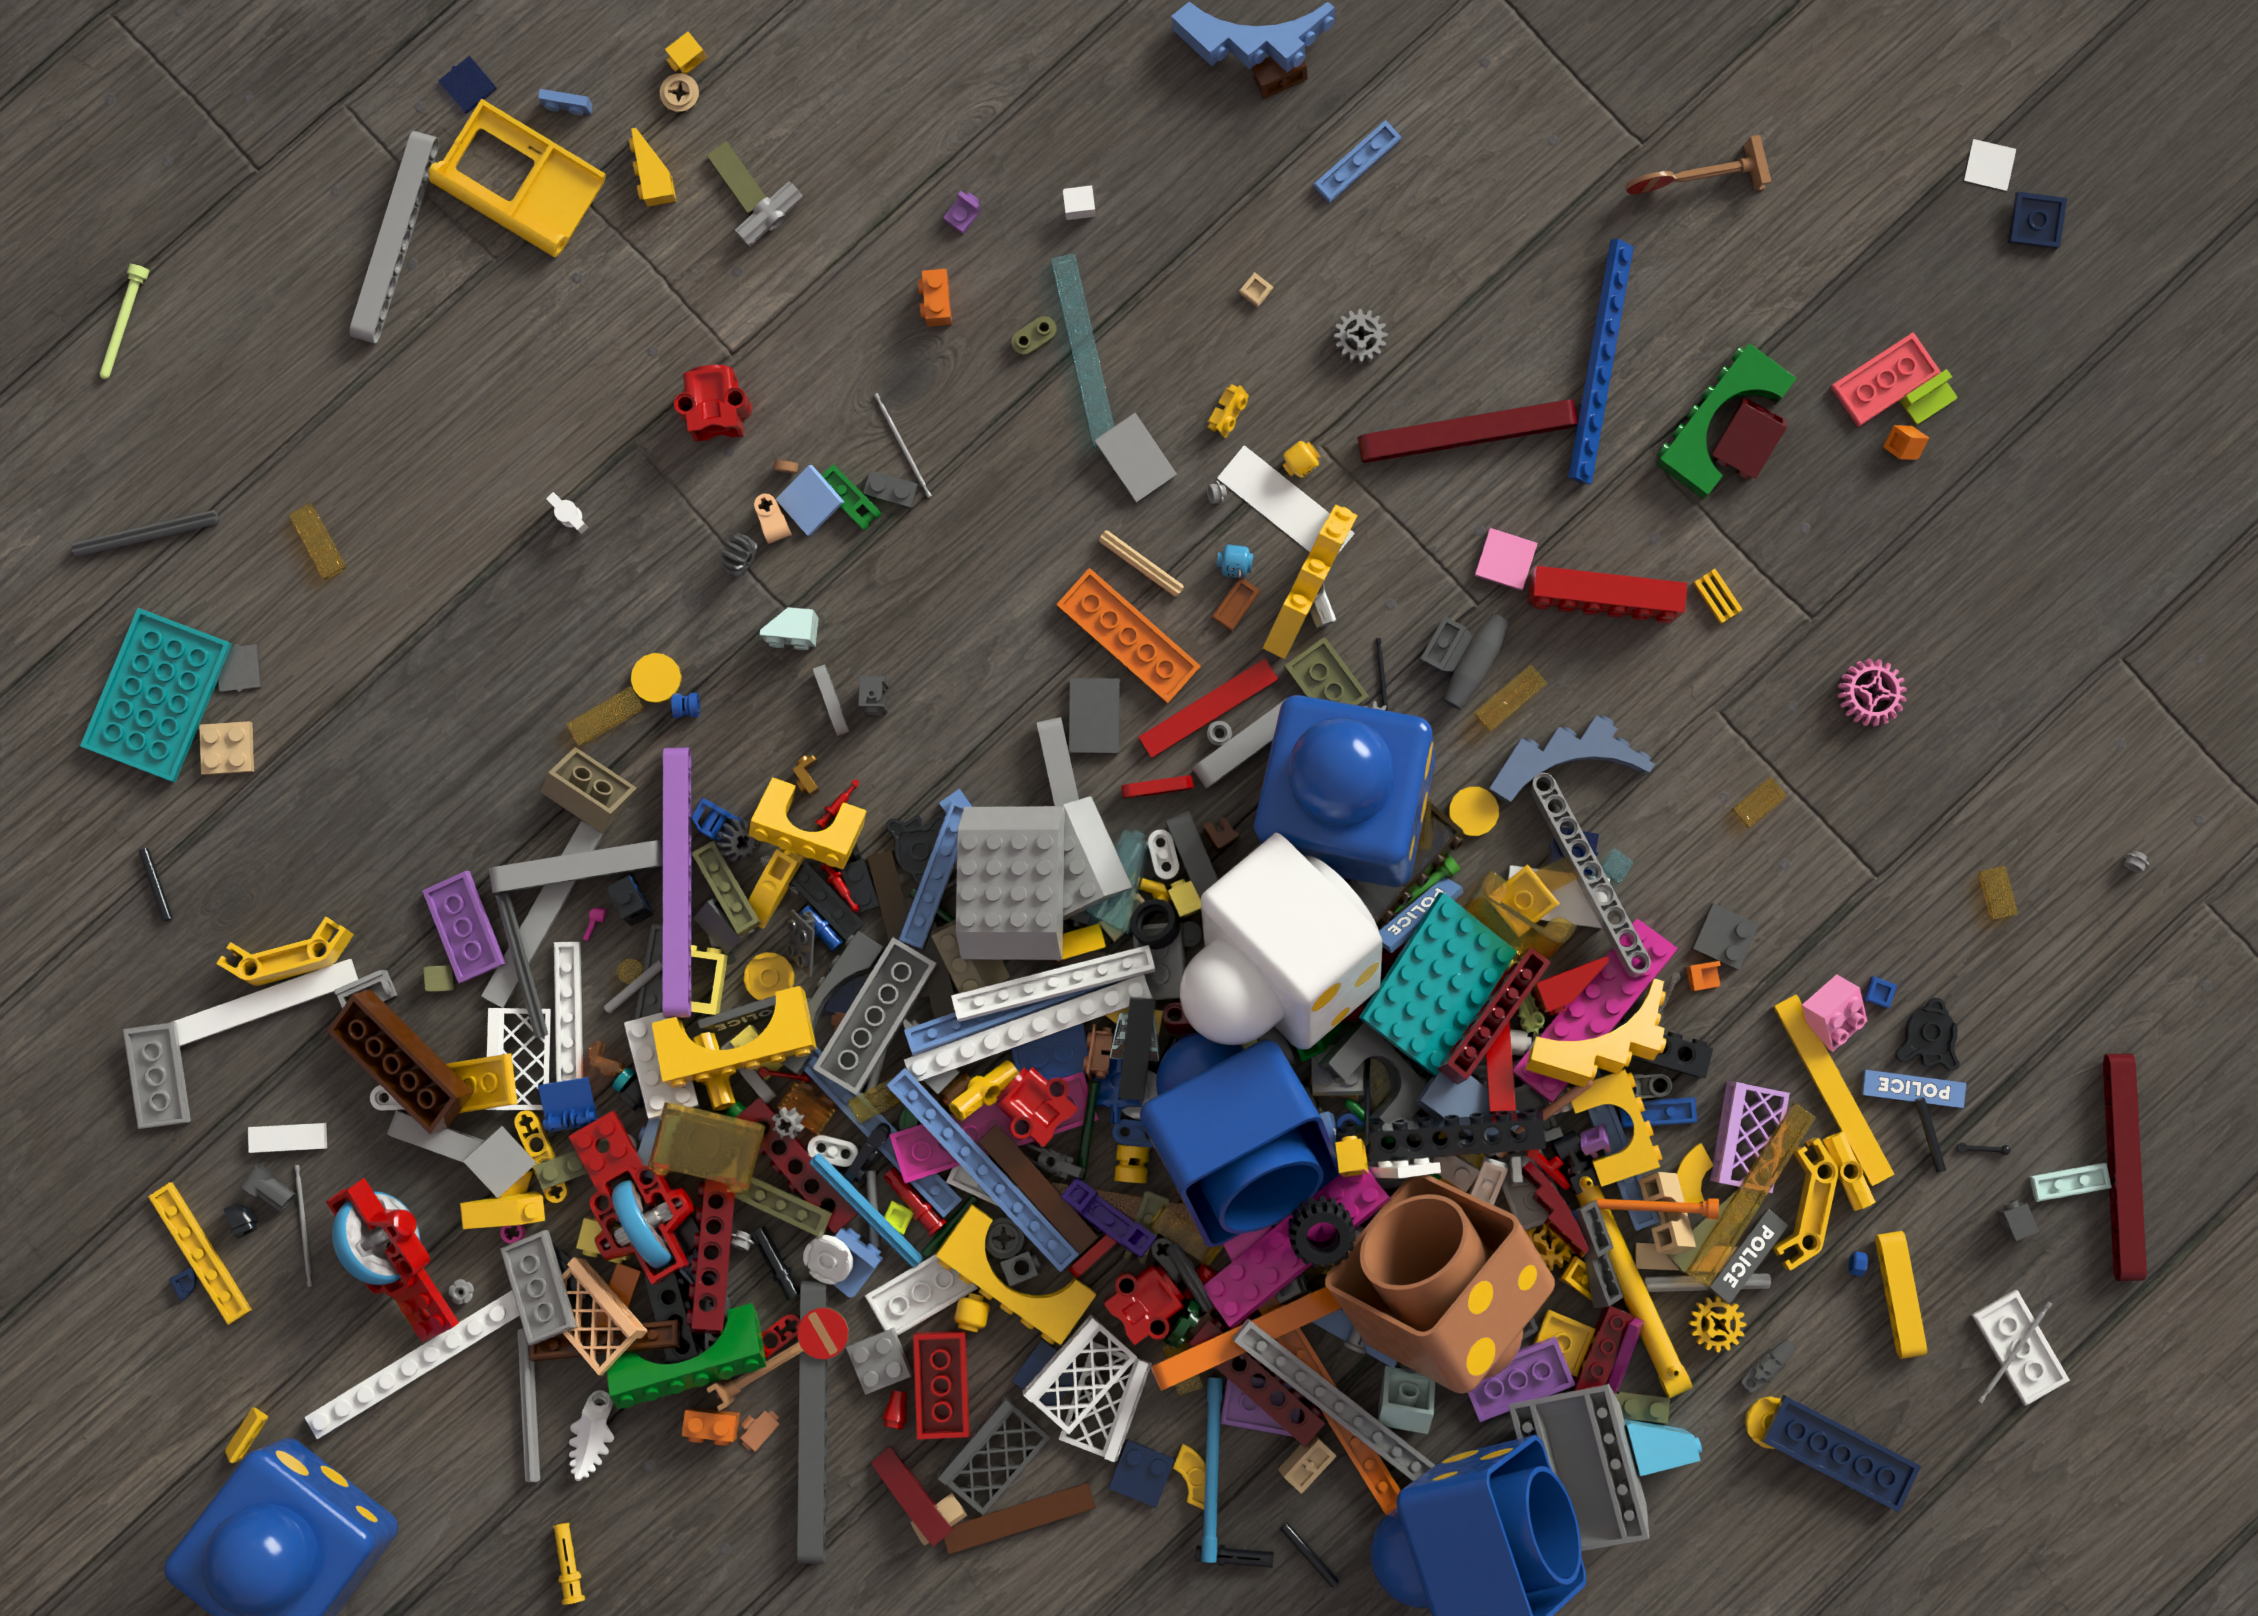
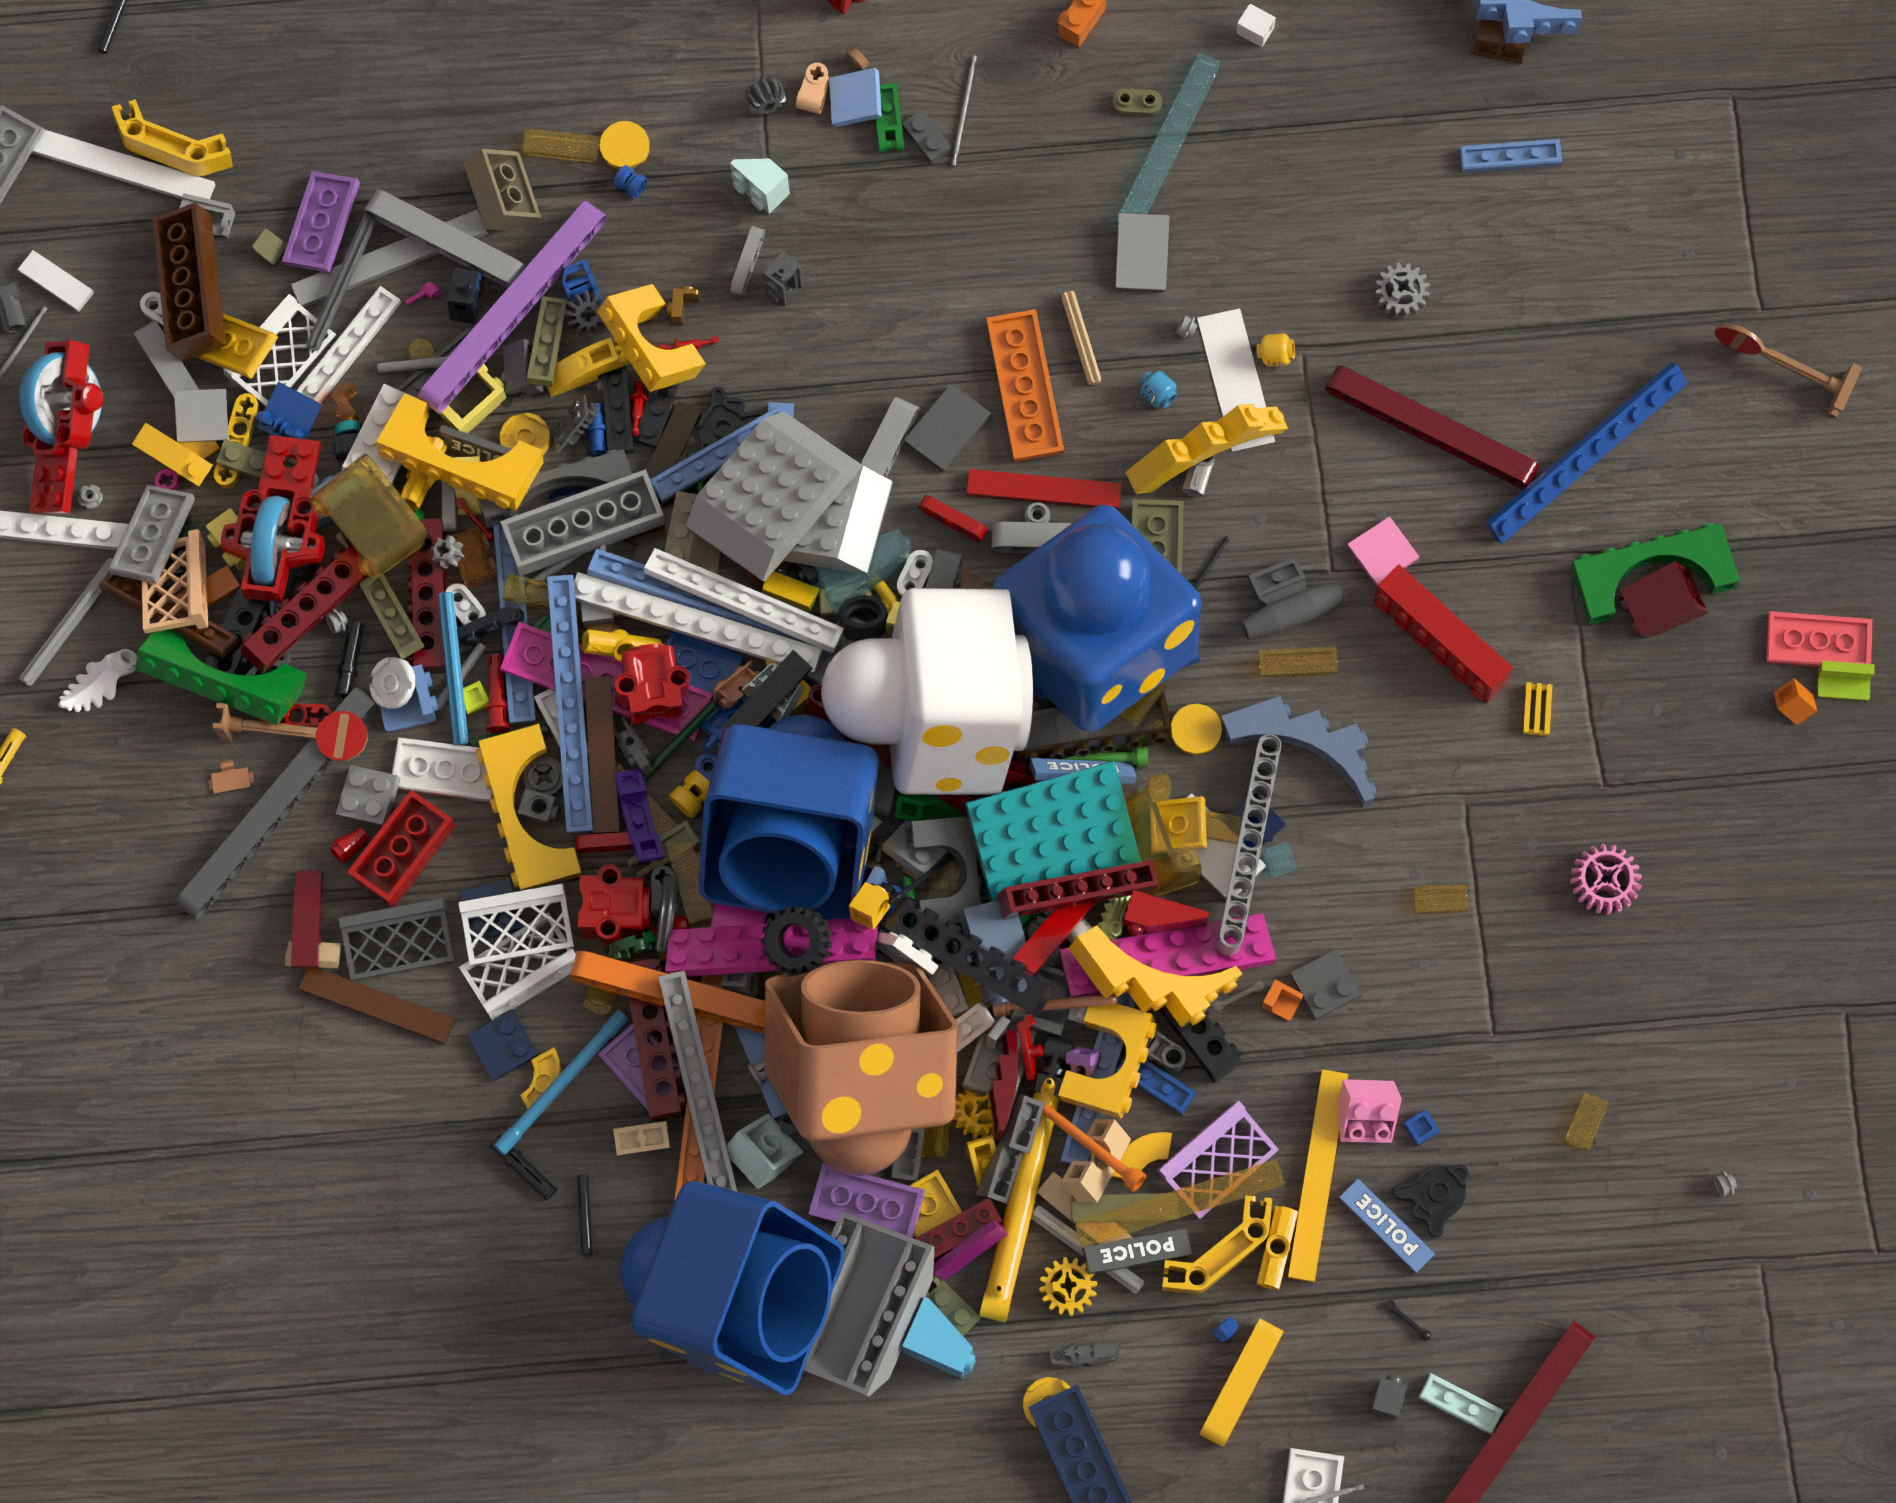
camera: 40 degrees right, 10 degrees down
(710, 1424) = (199, 745): orange brick -> none
(972, 1313) = (471, 813): yellow head -> none
(1234, 400) = (1256, 268): yellow hinge -> none
(1236, 604) = (1132, 425): dark orange tile -> none
(1256, 290) = (1346, 195): tan tile -> none
(1930, 1134) = (1370, 1272): black bar -> none

